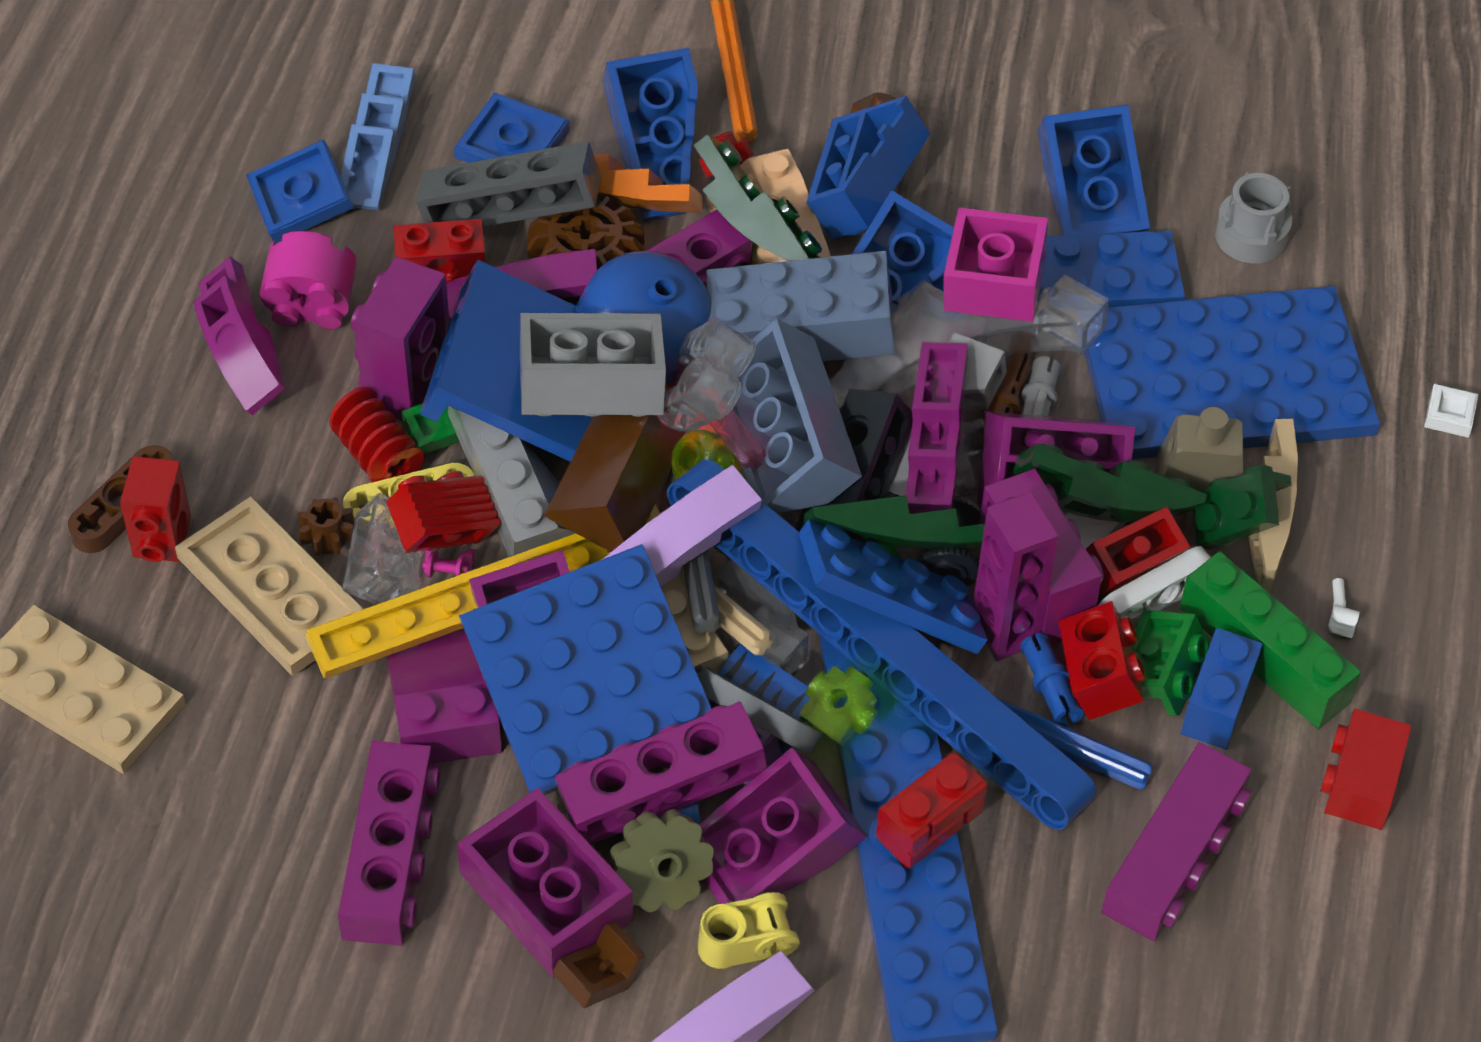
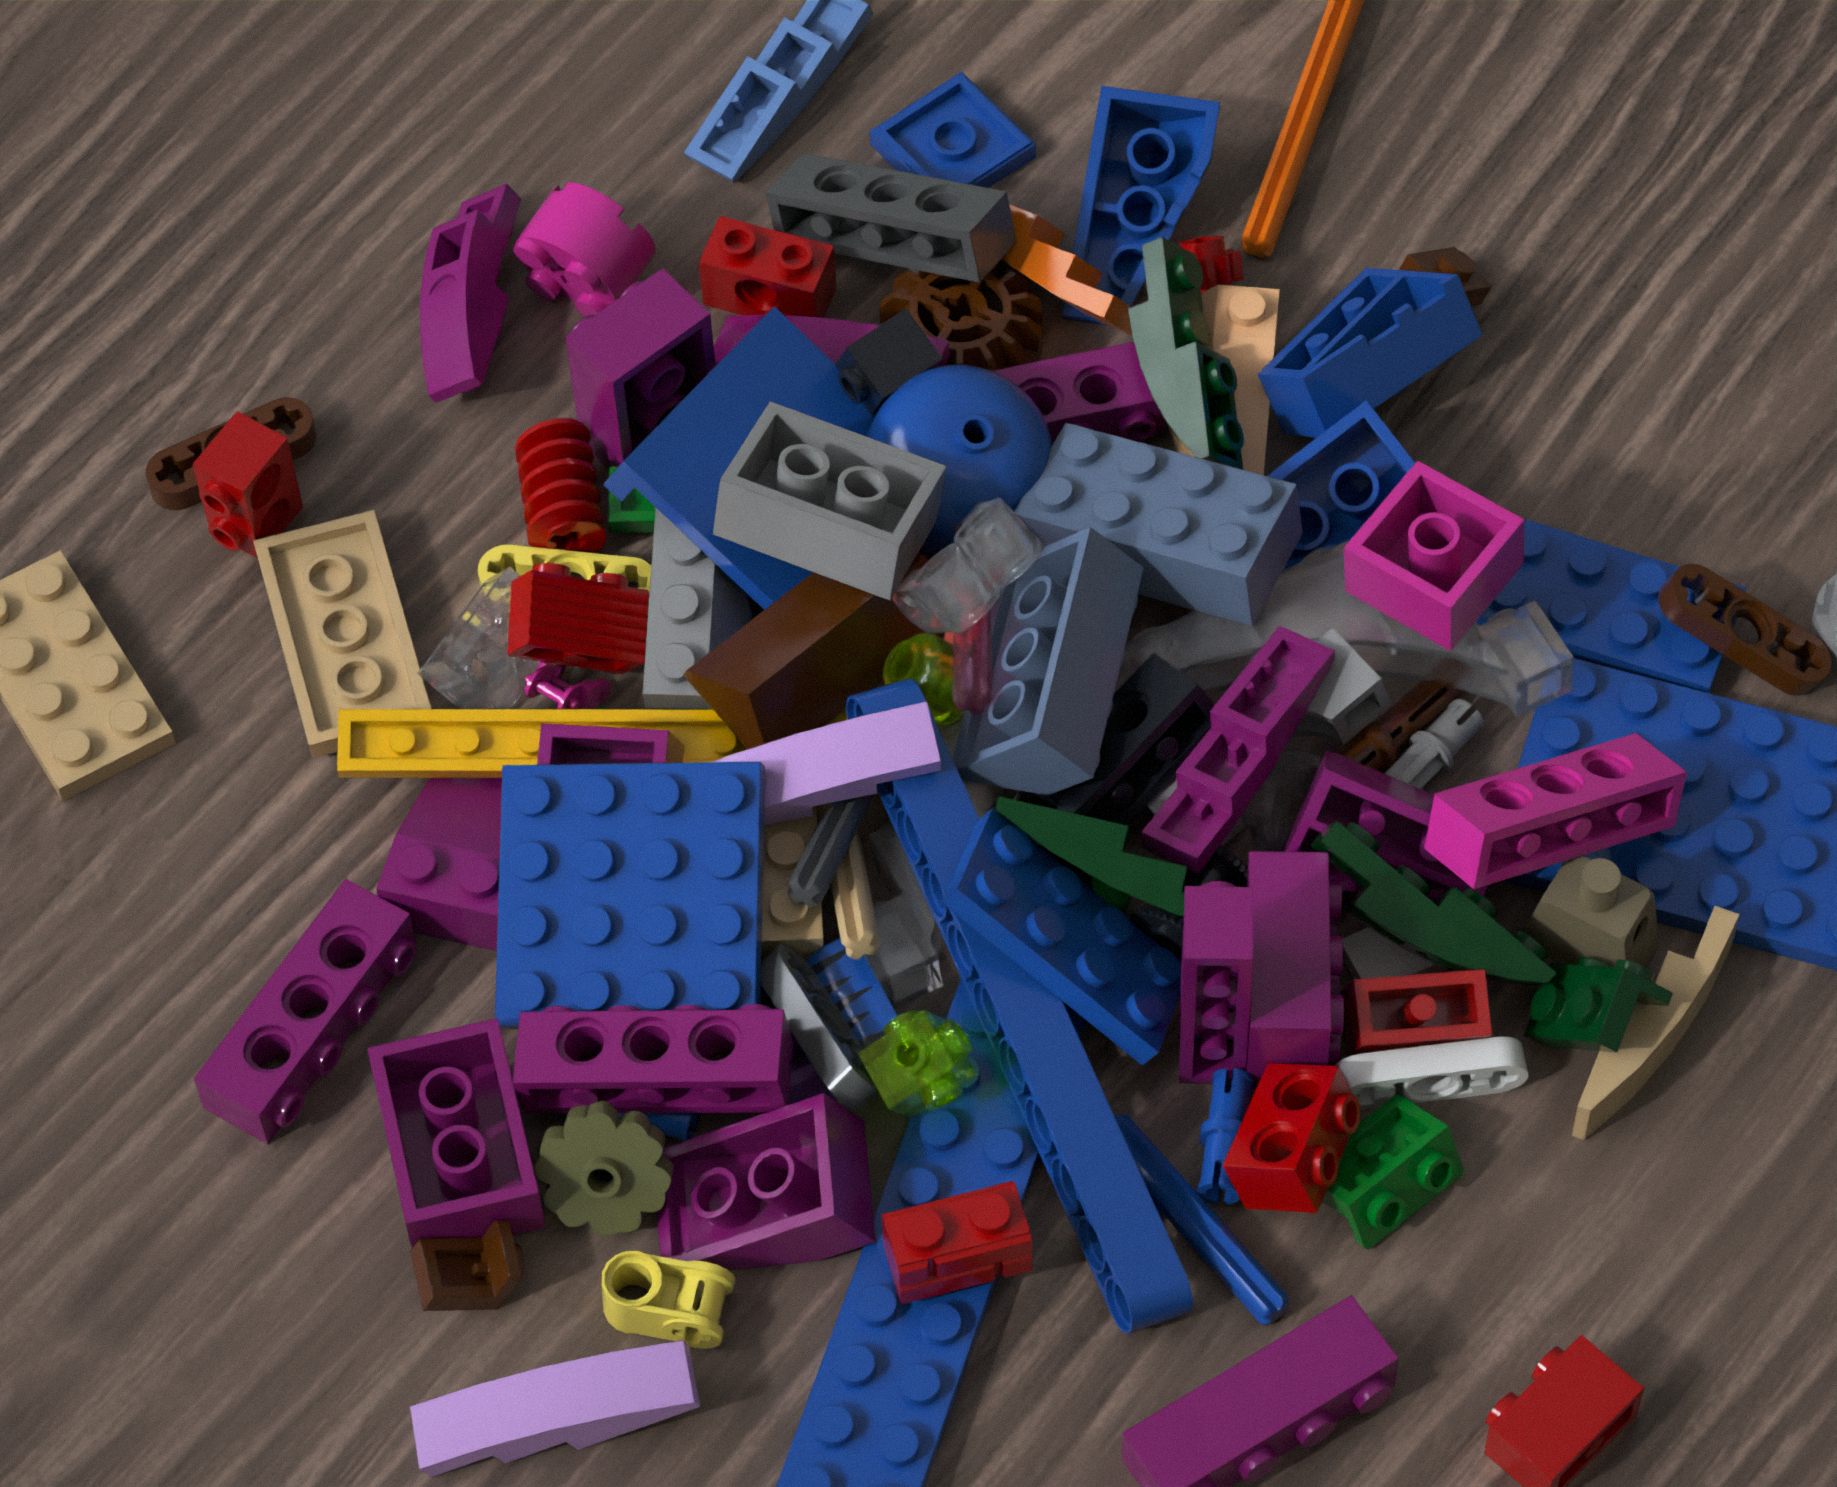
camera: 30 degrees right, 5 degrees up
(299, 191) = (645, 123): blue plate -> none
(326, 526) = (443, 582): reddish brown gear -> none
(571, 270) = (885, 360): none -> black brick
(1094, 171) = (1684, 469): blue slope -> none
(1157, 392) = (1554, 810): none -> dark pink brick
(1162, 244) = (1719, 634): none -> reddish brown beam
(1221, 688) = (1433, 1237): blue brick -> none
(1292, 656) = (1535, 1199): green brick -> none
(1342, 619) = (1658, 1212): white hand -> none

